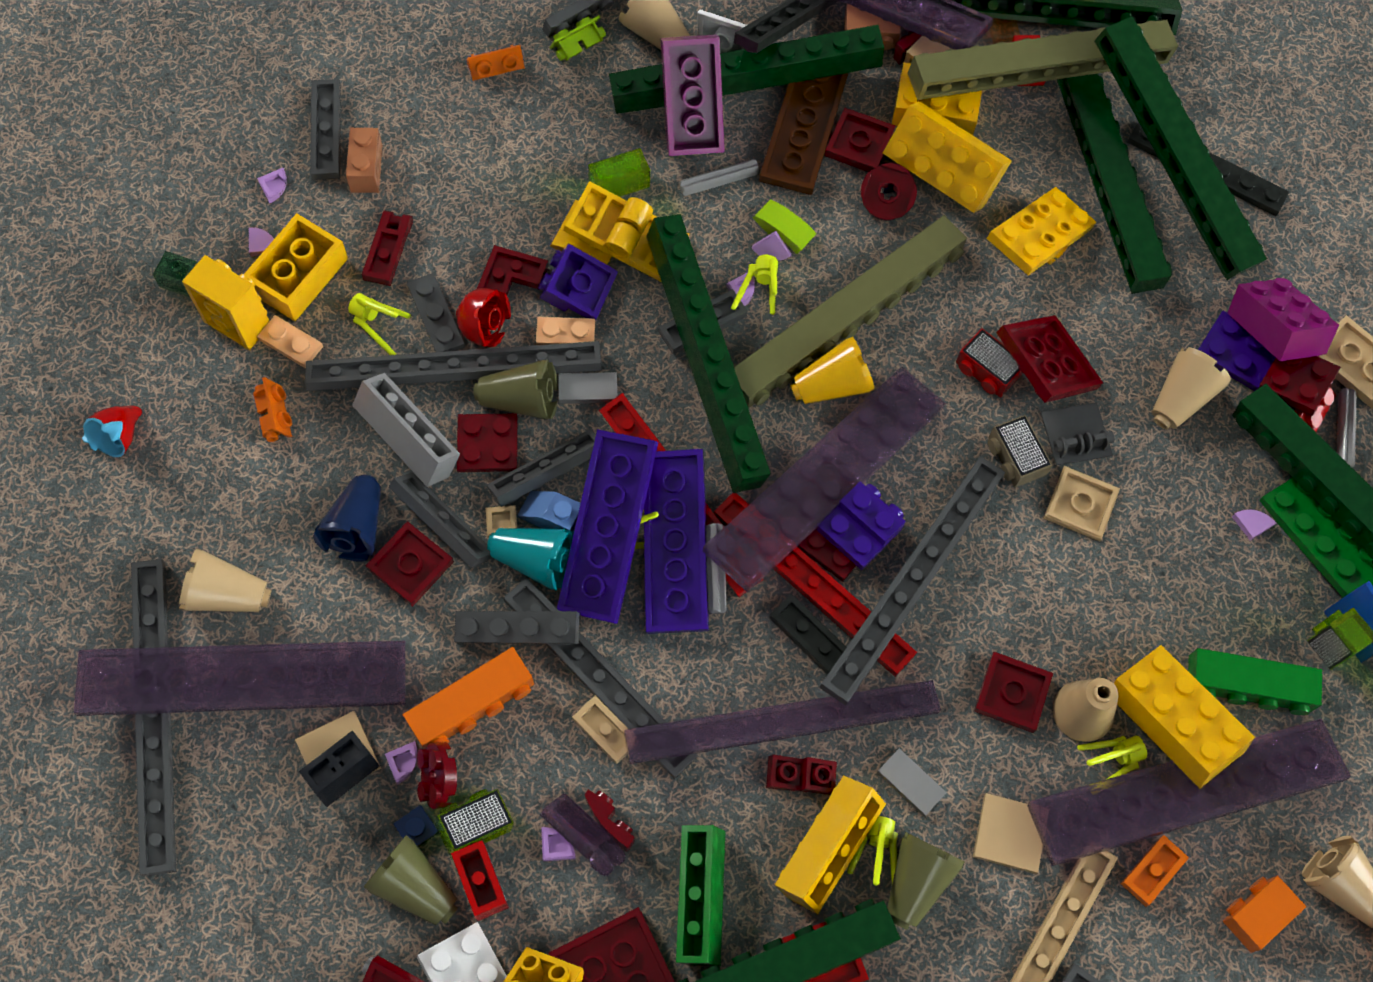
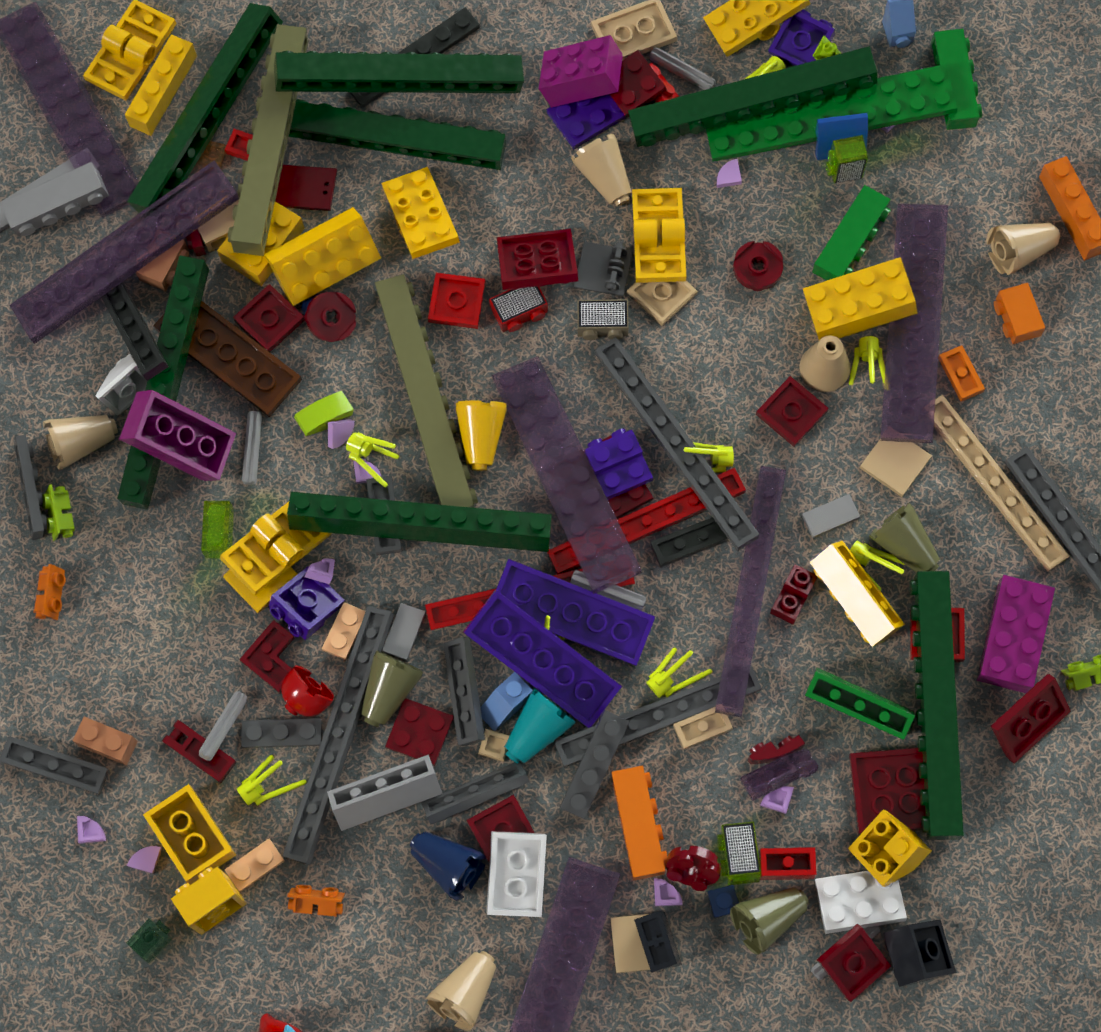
camera: 60 degrees left, 5 degrees up
(364, 591) = (516, 874): none -> white plate
(419, 255) = (223, 726): none -> light grey axle
(617, 284) = (321, 571): none -> lavender tile
(639, 665) = (661, 682): none -> neon yellow plant
(925, 632) = (721, 455): none -> neon yellow plant
(966, 303) = (456, 300): none -> red plate
(1013, 120) = (305, 187): none -> dark red container
(1143, 473) = (659, 235): none -> yellow plate
(1180, 586) = (758, 279): none -> dark red plate

